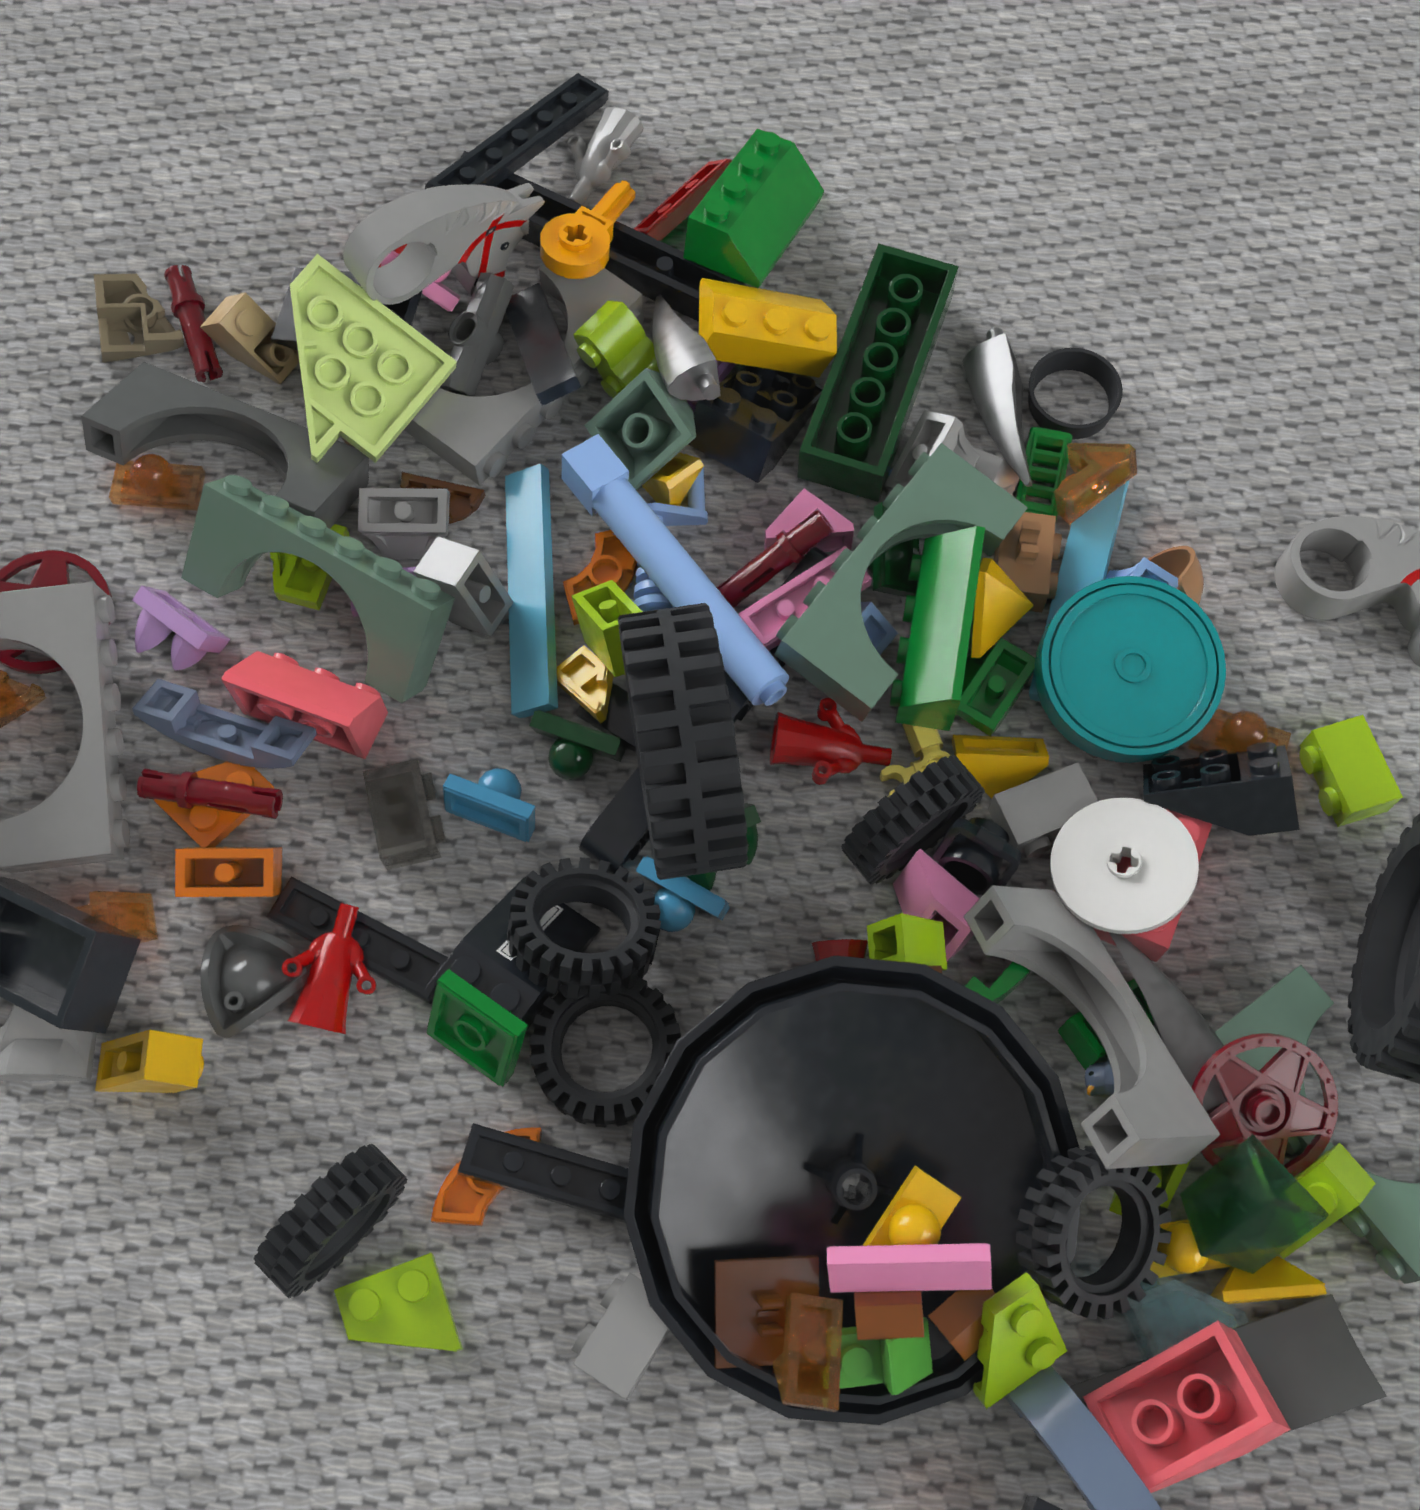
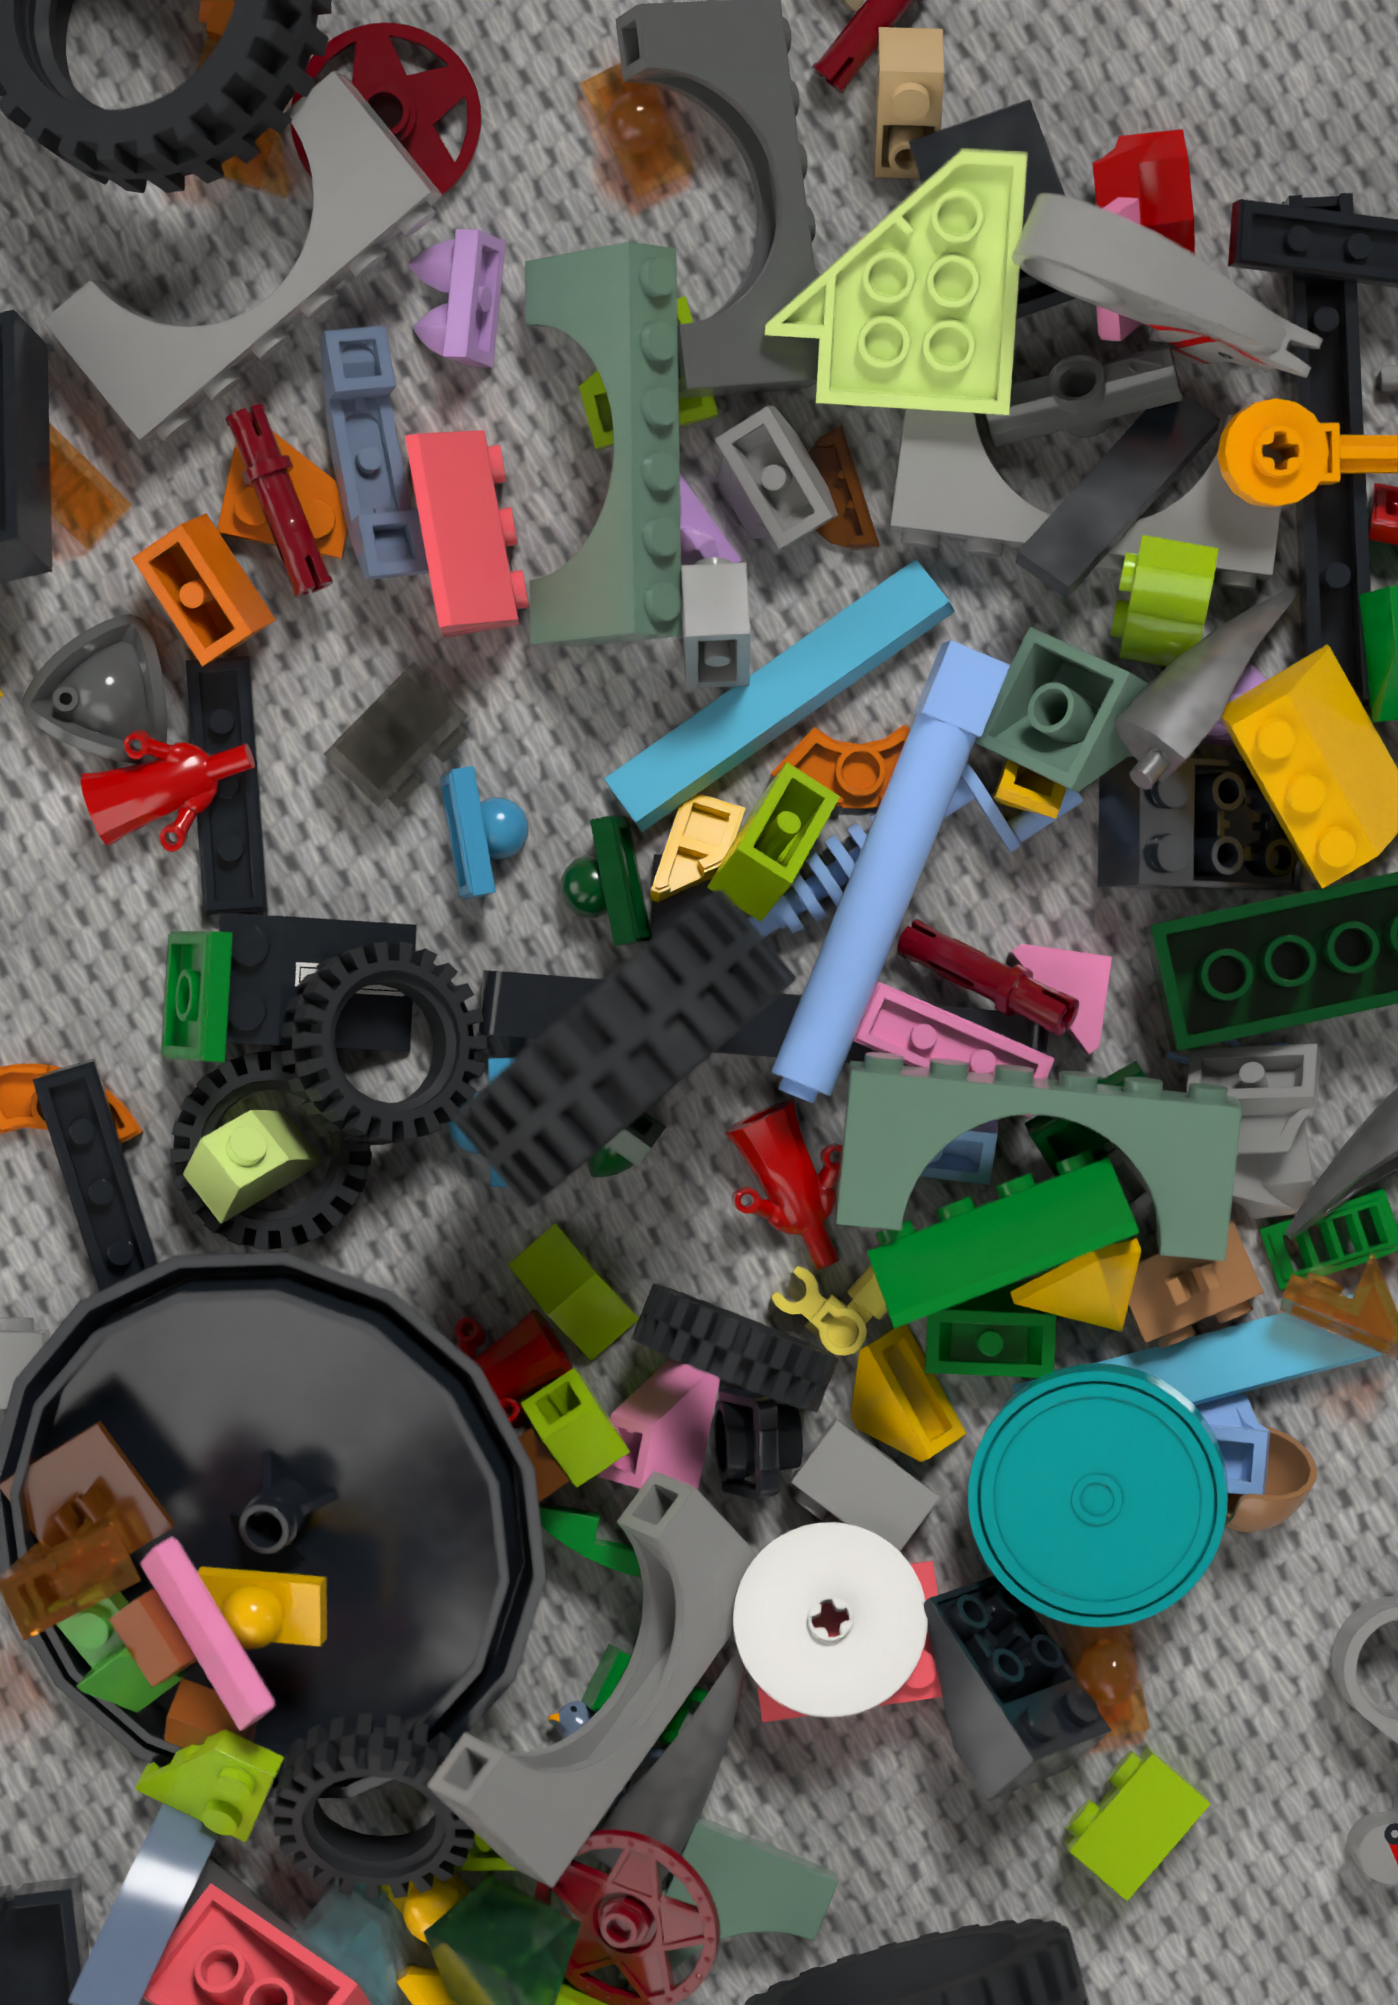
camera: 55 degrees right, 20 degrees up
(603, 1063) = (248, 1161): none -> yellowish green slope
(814, 914) = (572, 1292): none -> lime slope

